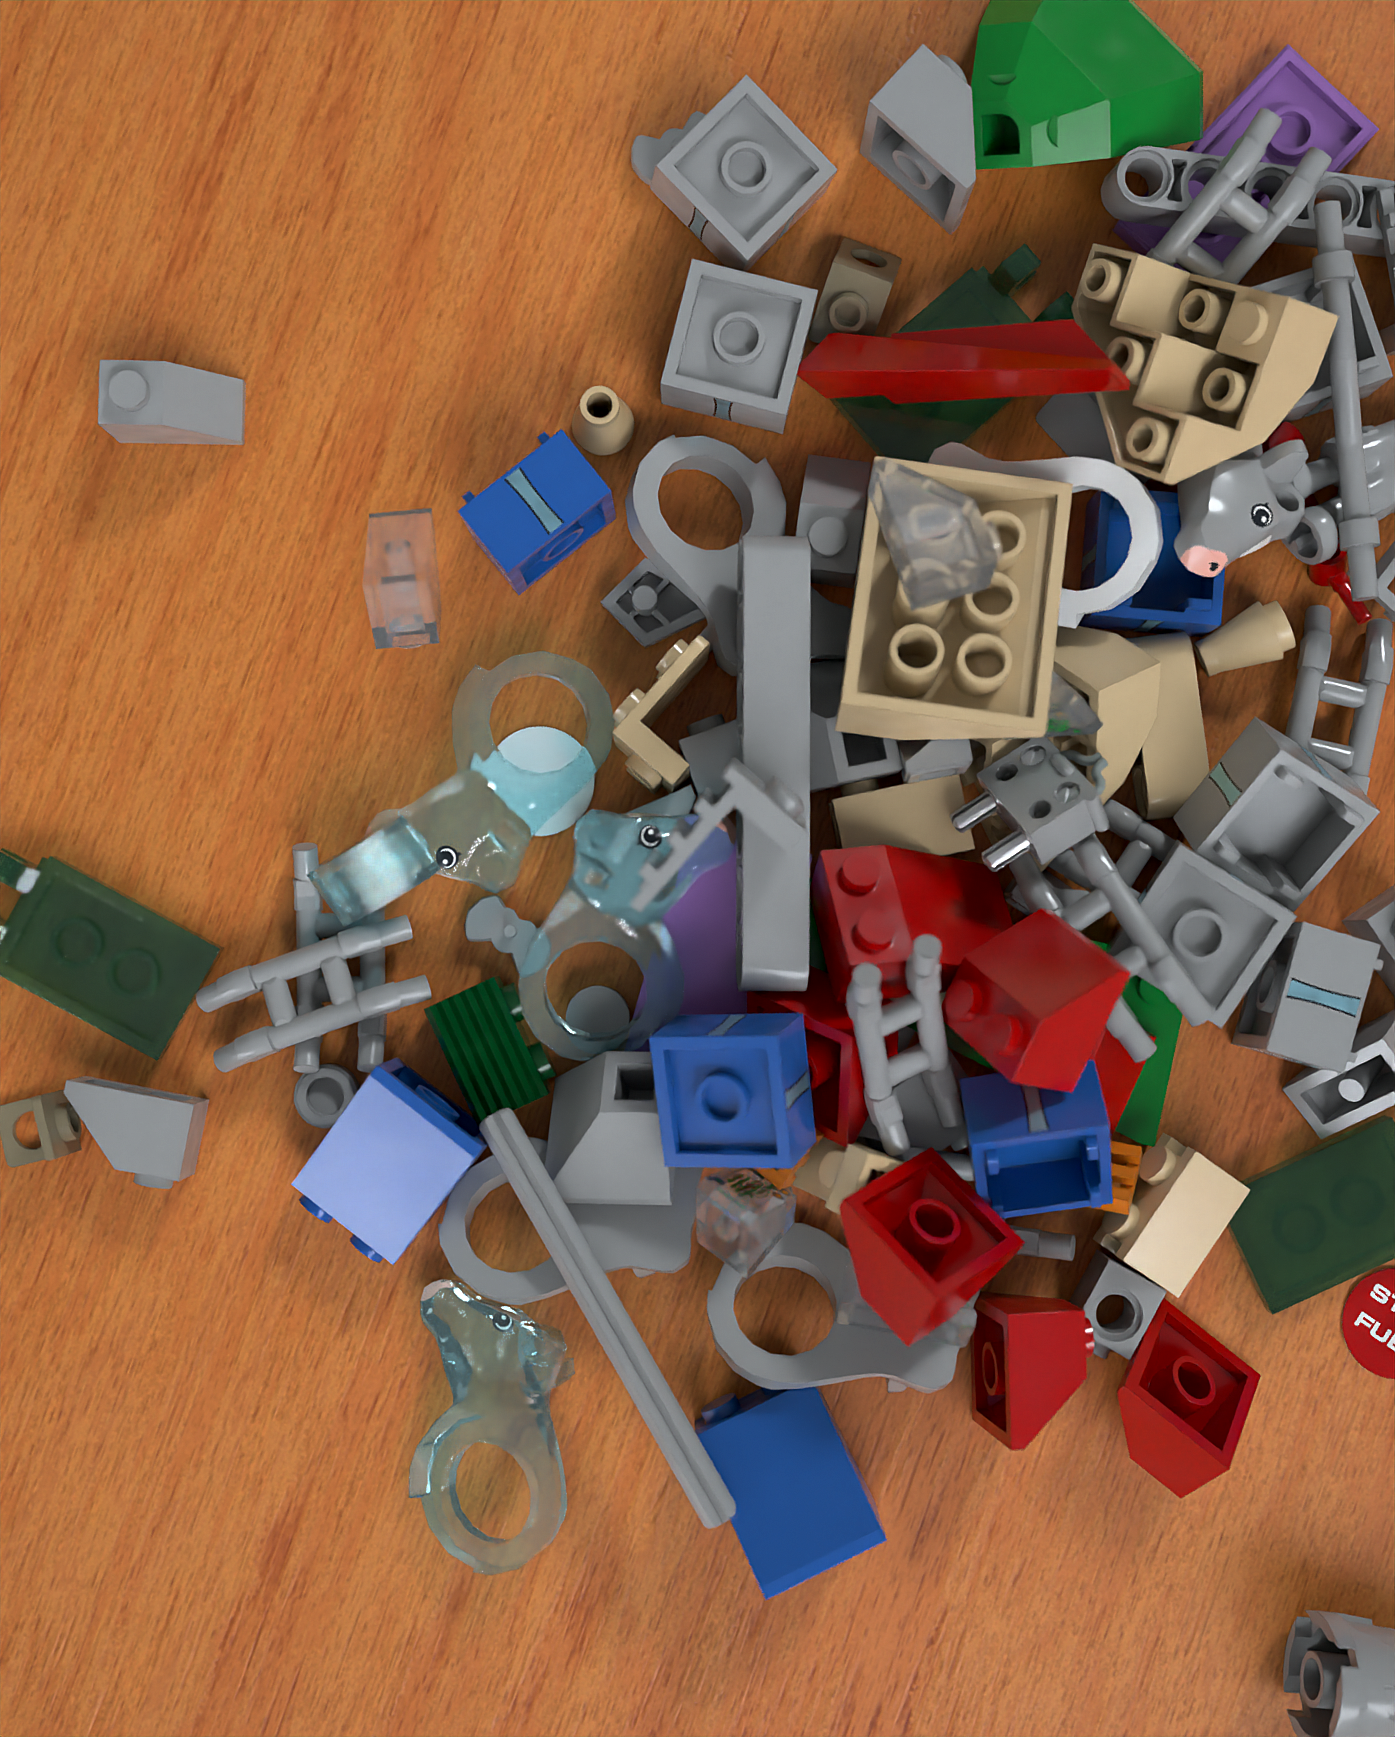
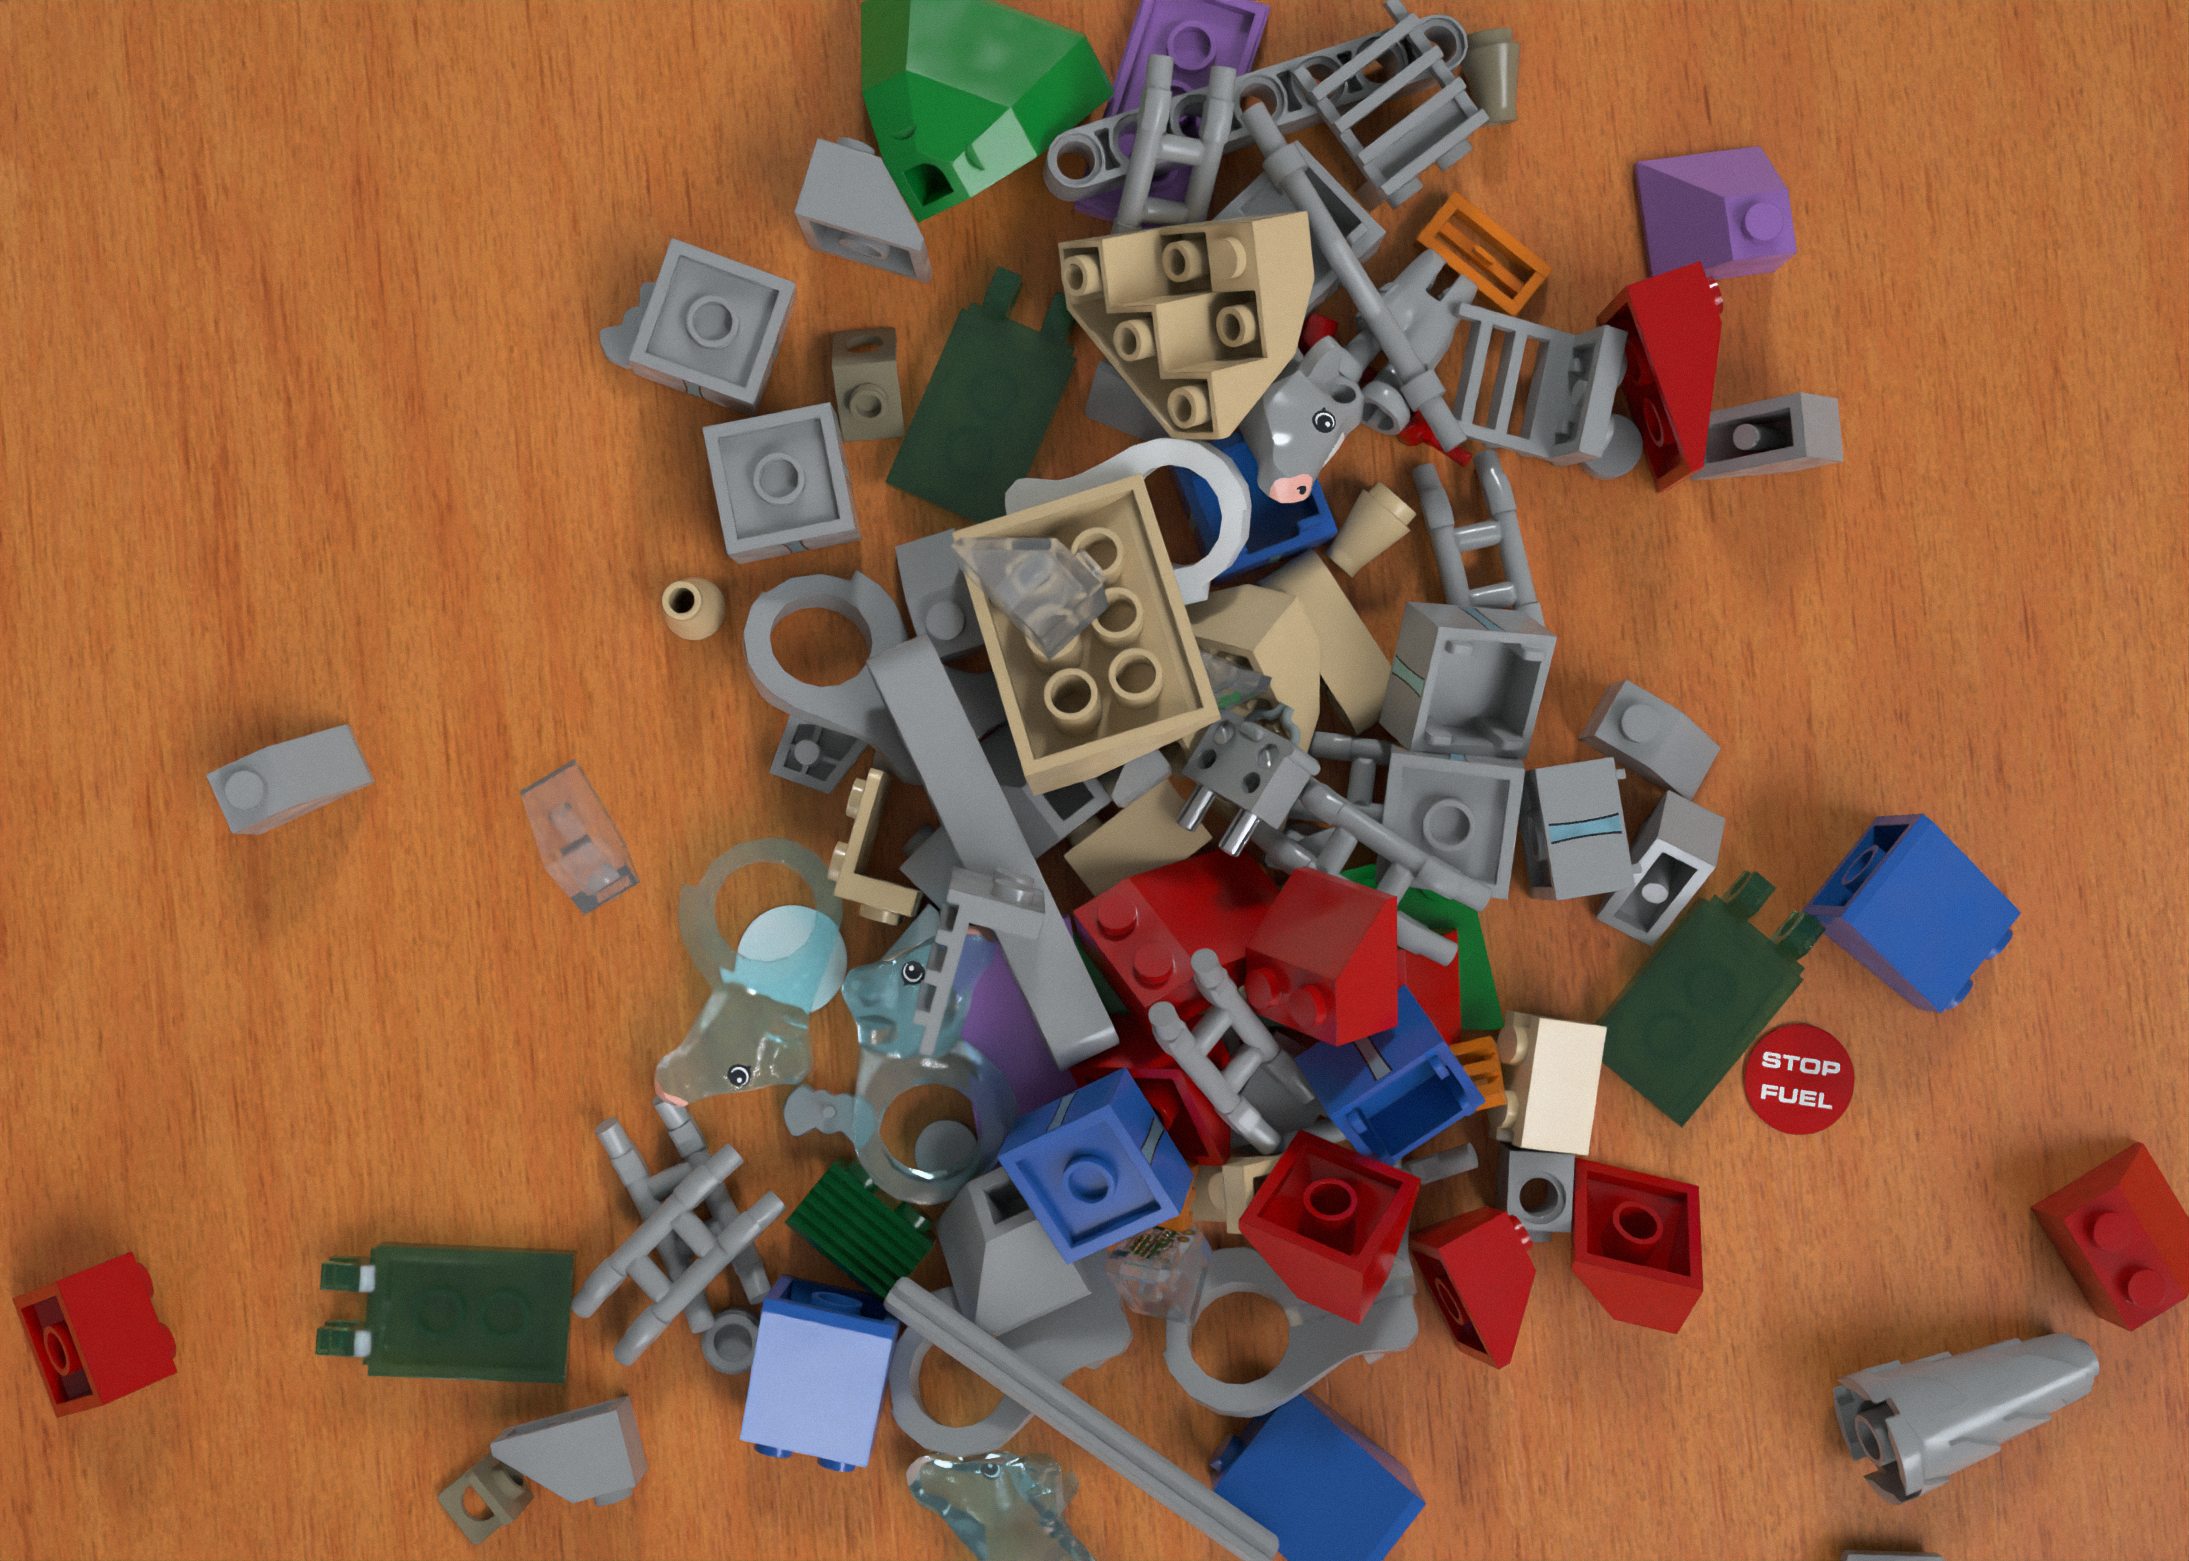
camera: 30 degrees left, 0 degrees up
(374, 870) = (678, 1120): clear light blue slope -> none
(539, 511) = (672, 723): blue container -> none
(963, 364) = (990, 408): red wedge -> none

